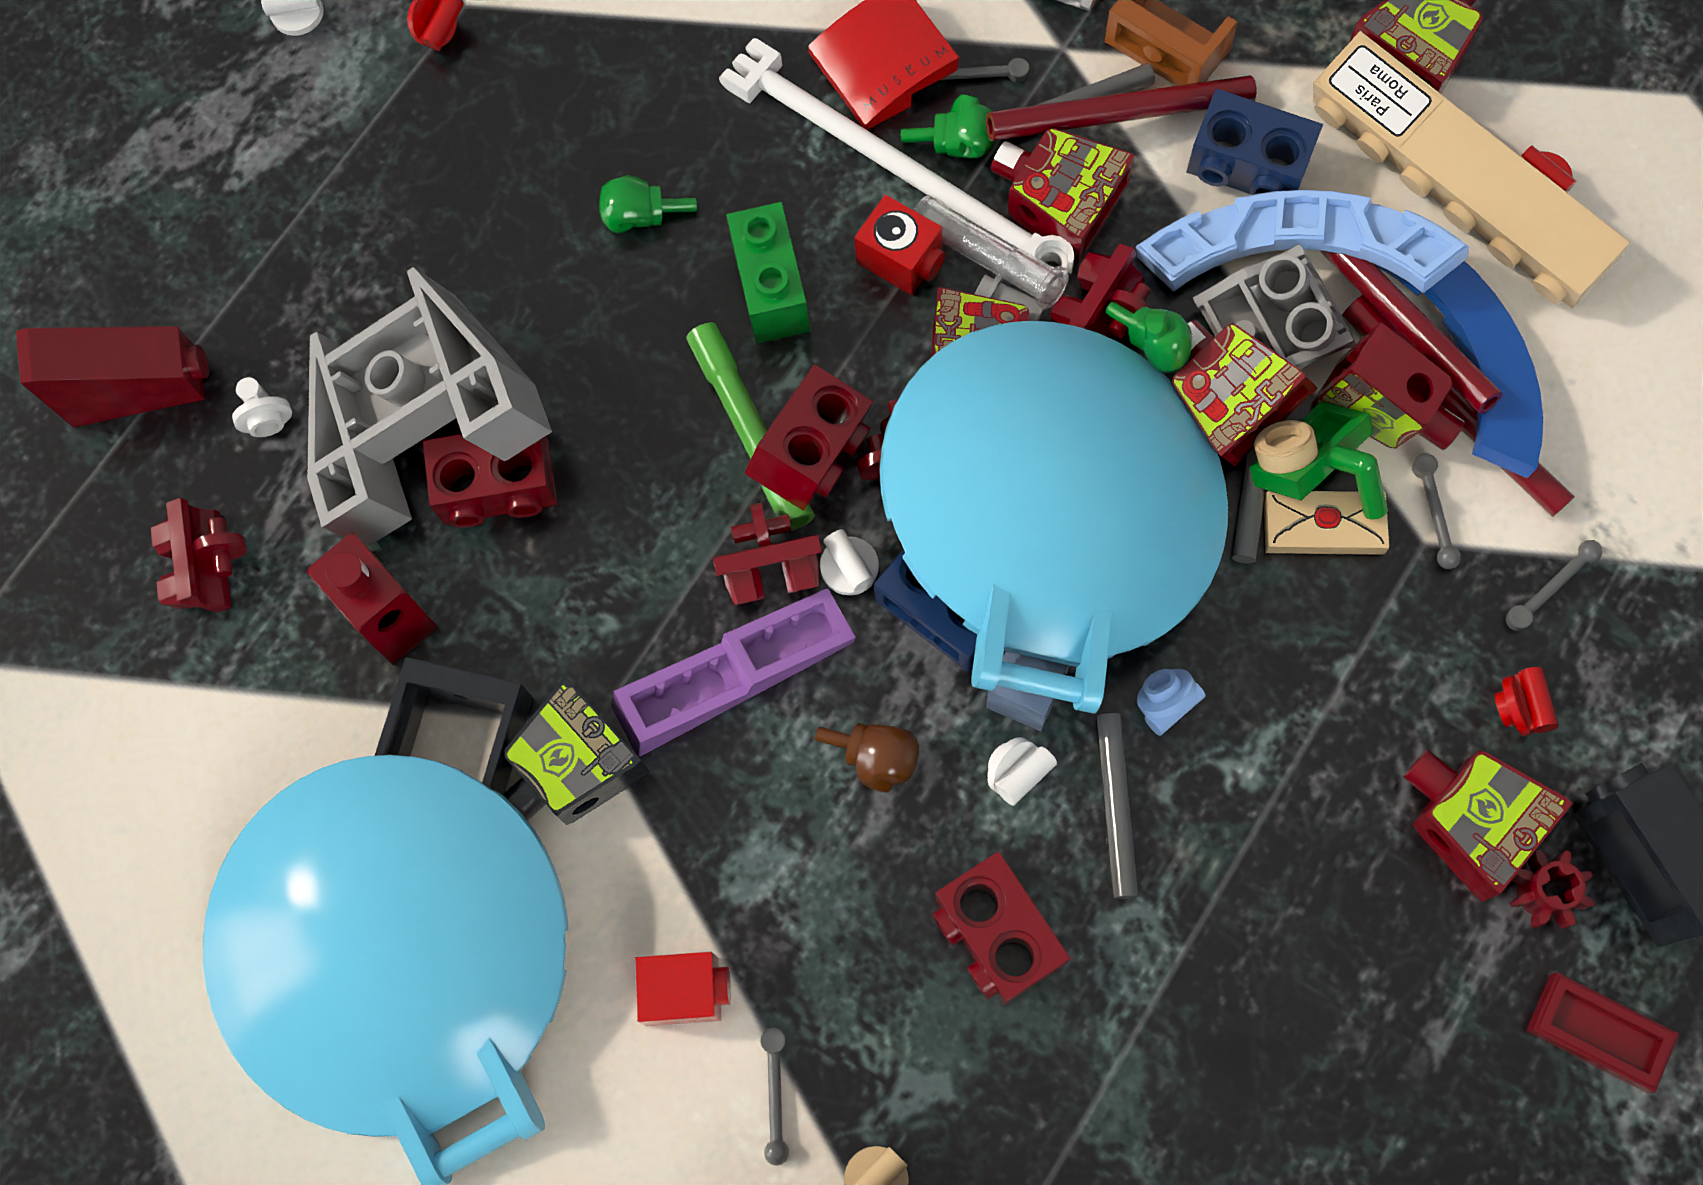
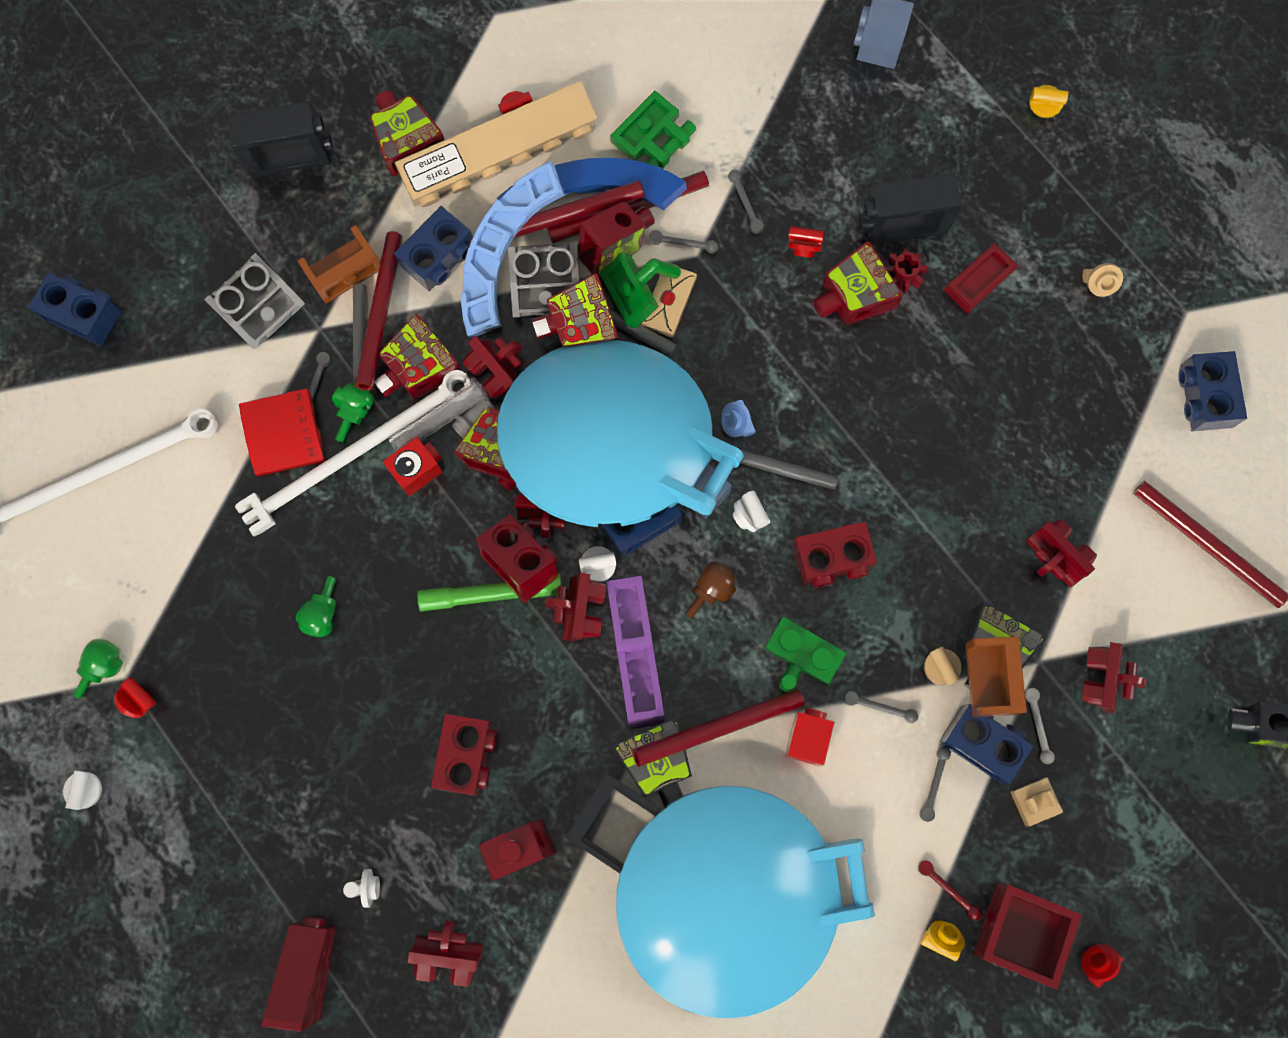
camera: 75 degrees left, 5 degrees up
(397, 388) = (392, 788): light grey wedge -> none
(647, 833) = (717, 727): none -> dark red piece
(768, 272) = (400, 547): green brick -> none
(820, 936) = (804, 653): none -> green plate
(1159, 333) = (535, 341): green piece -> none
(1286, 446) = (625, 302): tan tile -> none
(1610, 381) = (646, 125): none -> green plate

